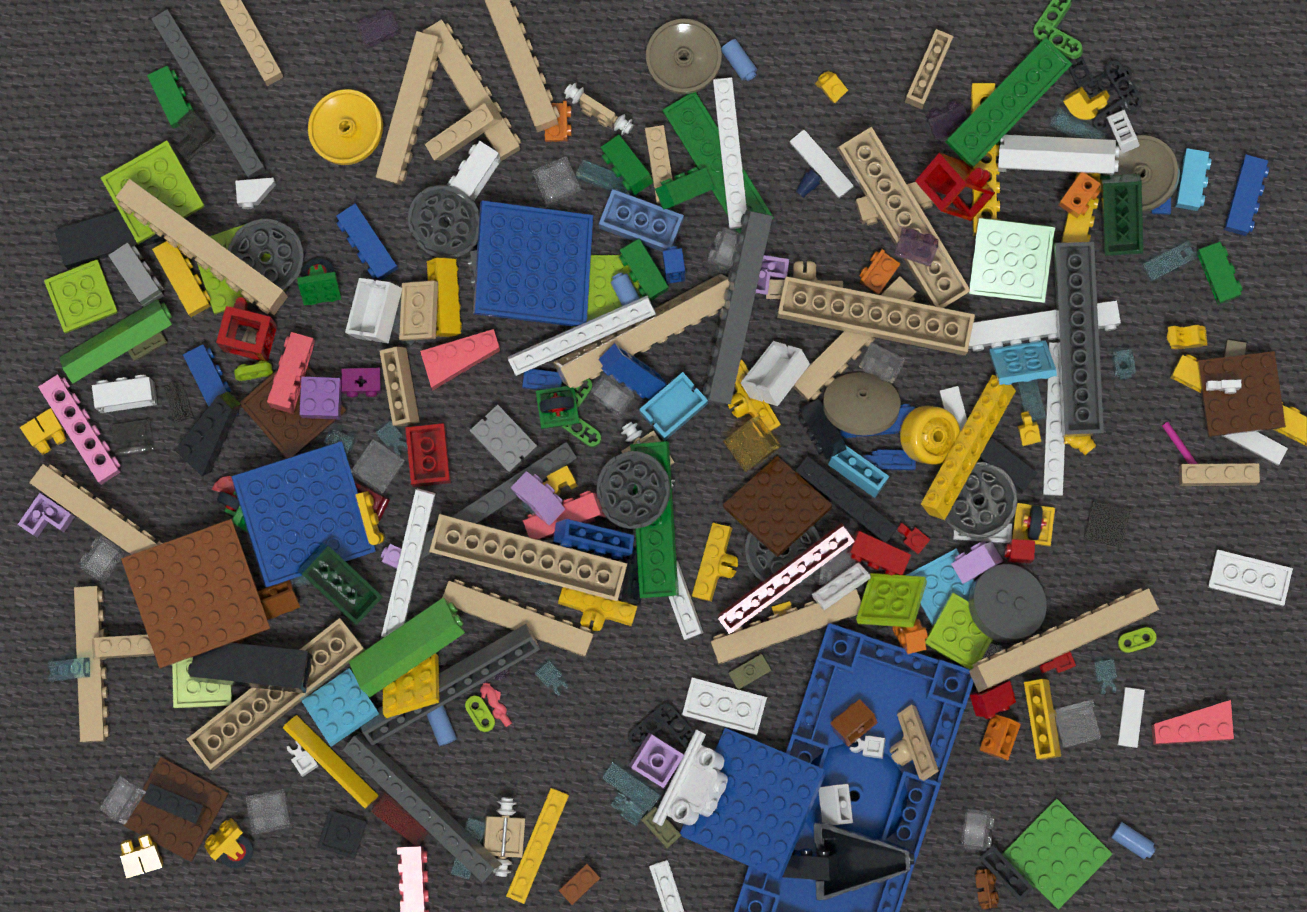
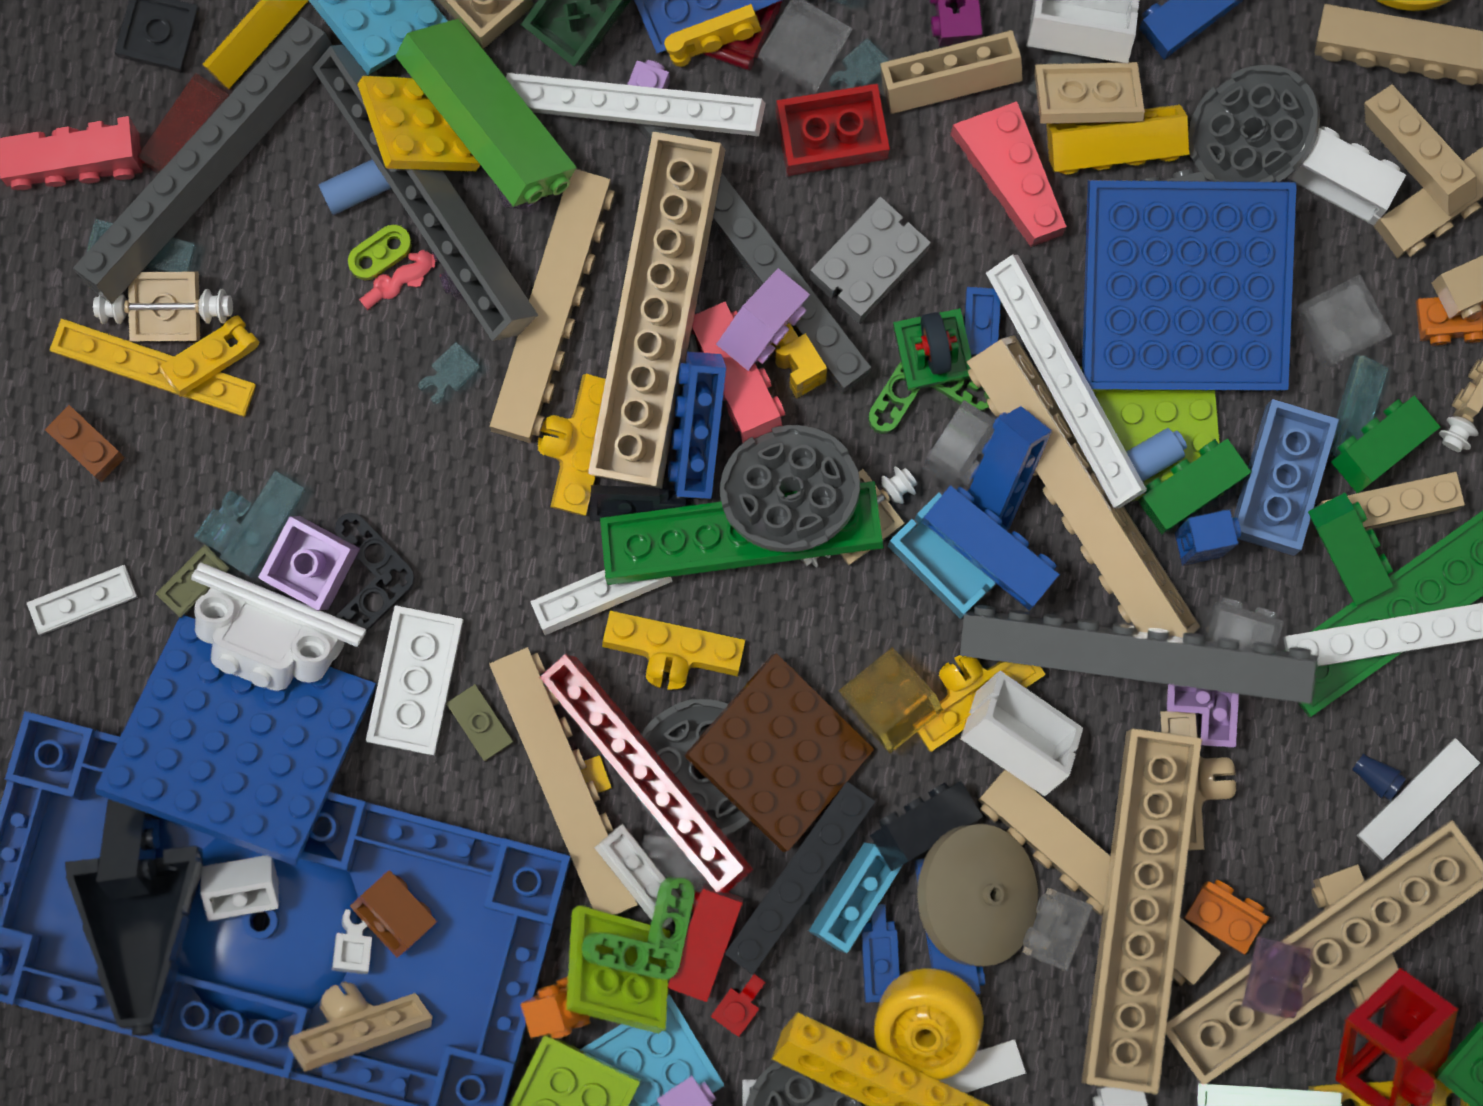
camera: 75 degrees right, 0 degrees up
(534, 813) = (208, 356): none -> yellow plate
(673, 382) = (990, 547): none -> blue brick
(878, 578) = (657, 944): none -> bright green beam

